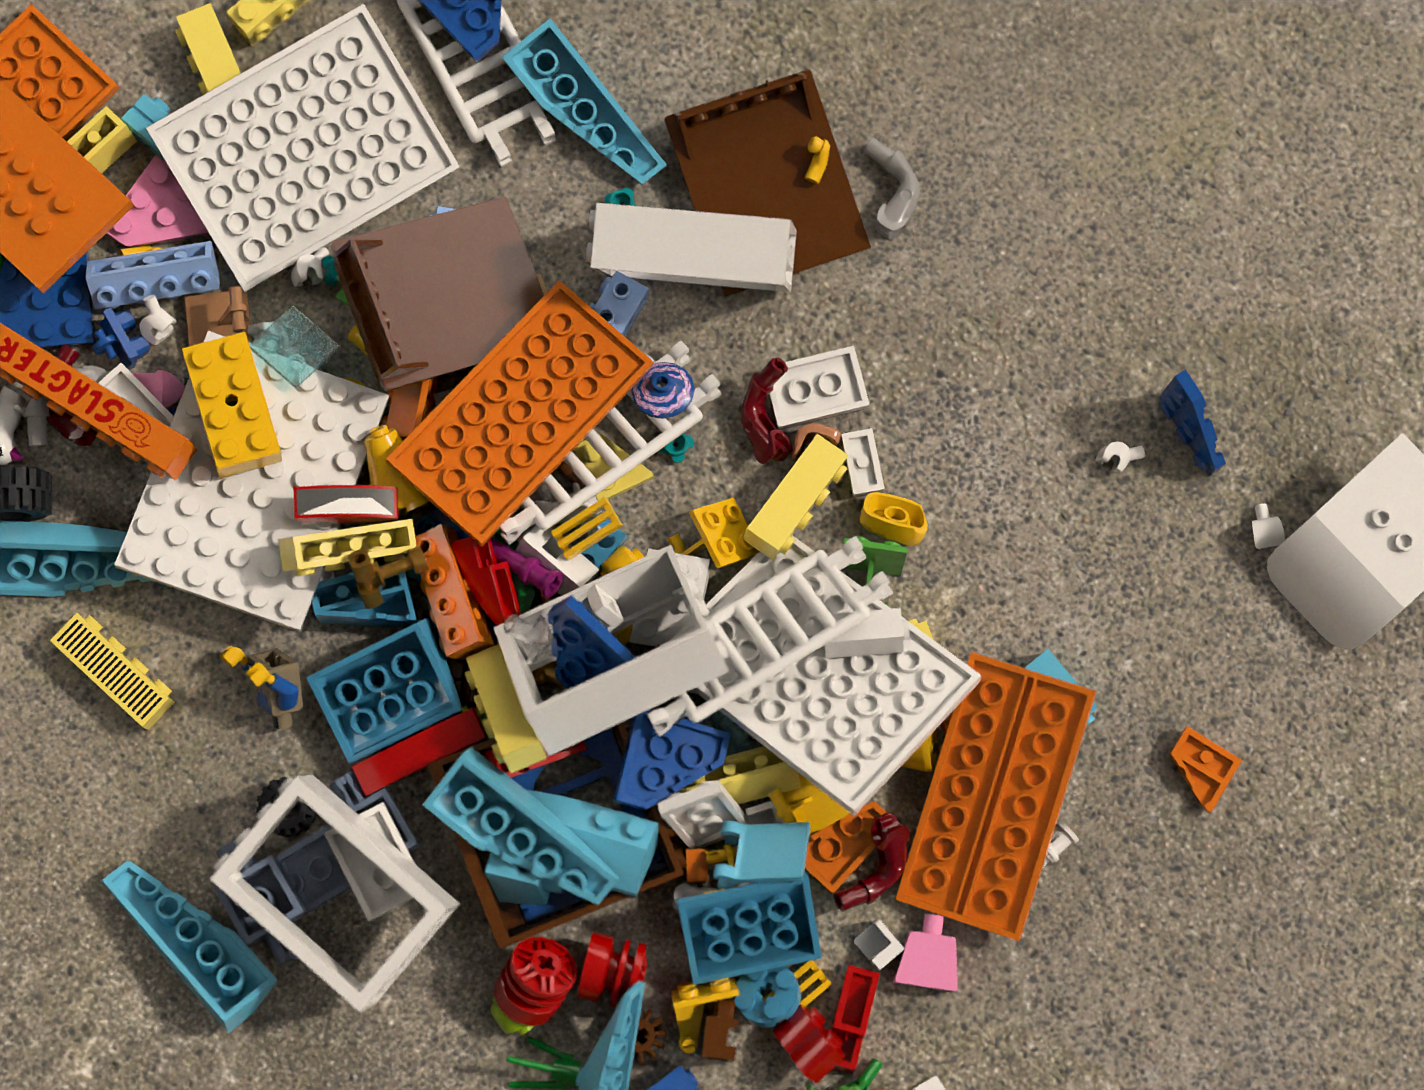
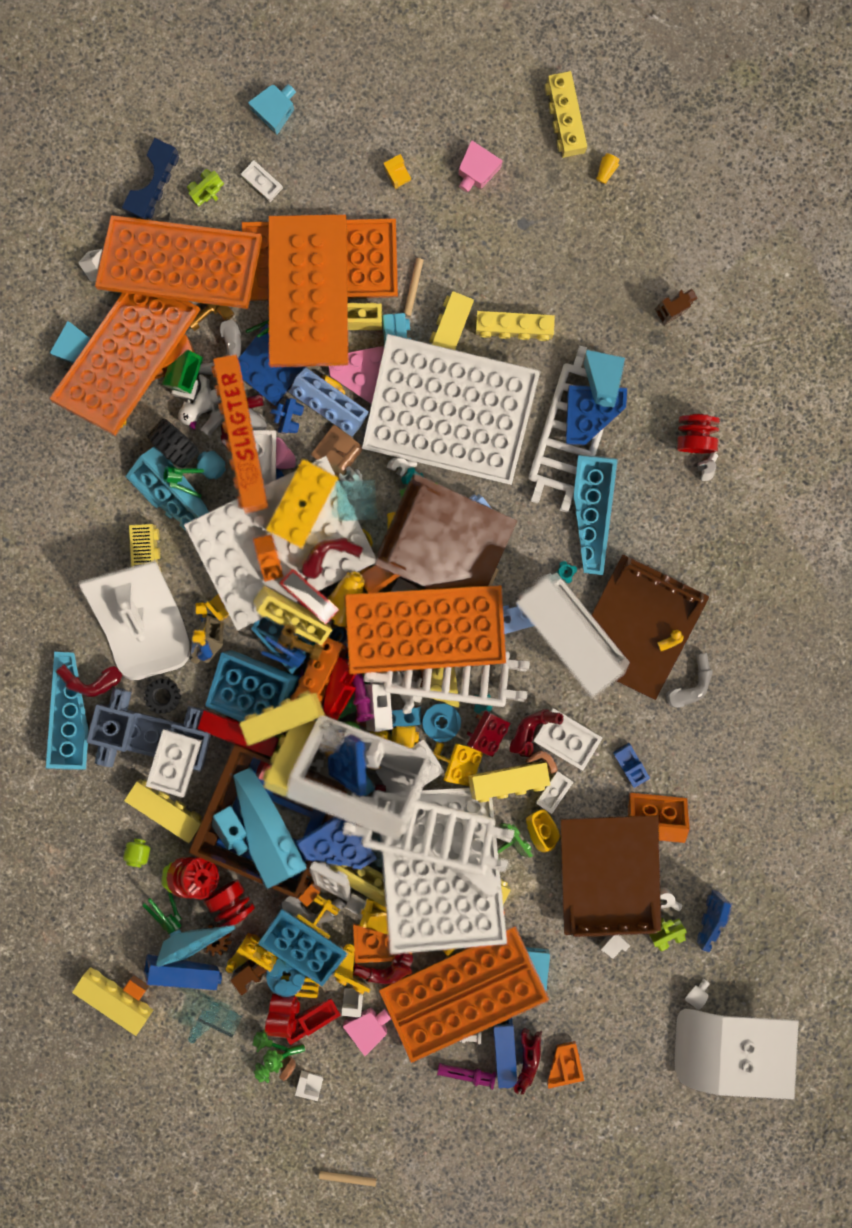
camera: 50 degrees right, 10 degrees up
(49, 524) = (175, 475): none -> green plant
(82, 479) = (212, 464): none -> medium azure head
(126, 59) = (413, 286): none -> tan bar
(157, 324) = (311, 425): white piece -> none
(168, 738) = (139, 620): none -> white door
(201, 848) = (110, 678): none -> dark red piece
(252, 504) = (268, 557): none -> orange slope
(254, 634) = (217, 607): none -> yellow panel
(310, 790) = (174, 756): white door -> none
(314, 464) = (313, 564): none -> dark red piece
(399, 593) = (294, 657): none -> blue plant
(439, 1027) = (136, 853): none -> lime head
(451, 673) = (282, 718): none -> light yellow brick
(460, 933) = (164, 810): none -> light yellow brick
(510, 822) = (243, 801): medium azure wedge -> none
(563, 542) = (387, 704): yellow tile -> none
(650, 493) = (449, 730): none -> dark azure plate
(667, 400) = (495, 685): dish -> none
(716, 467) = (488, 733): none -> dark red plate
(764, 853) = (339, 926): medium azure flag -> none
(831, 914) = (344, 971): none -> yellow plate
(919, 347) = (631, 765): none -> blue slope
(1010, 374) = (671, 812): none -> orange slope
(1021, 485) = (611, 875): none -> reddish brown door
(1111, 568) = (613, 945): none -> white panel
(1115, 817) = (505, 1054): none -> blue slope
(1116, 883) = (476, 1079): none -> magenta pin
(1152, 797) = (531, 1060): none -> dark red piece
(1154, 492) = (669, 931): none -> lime hips

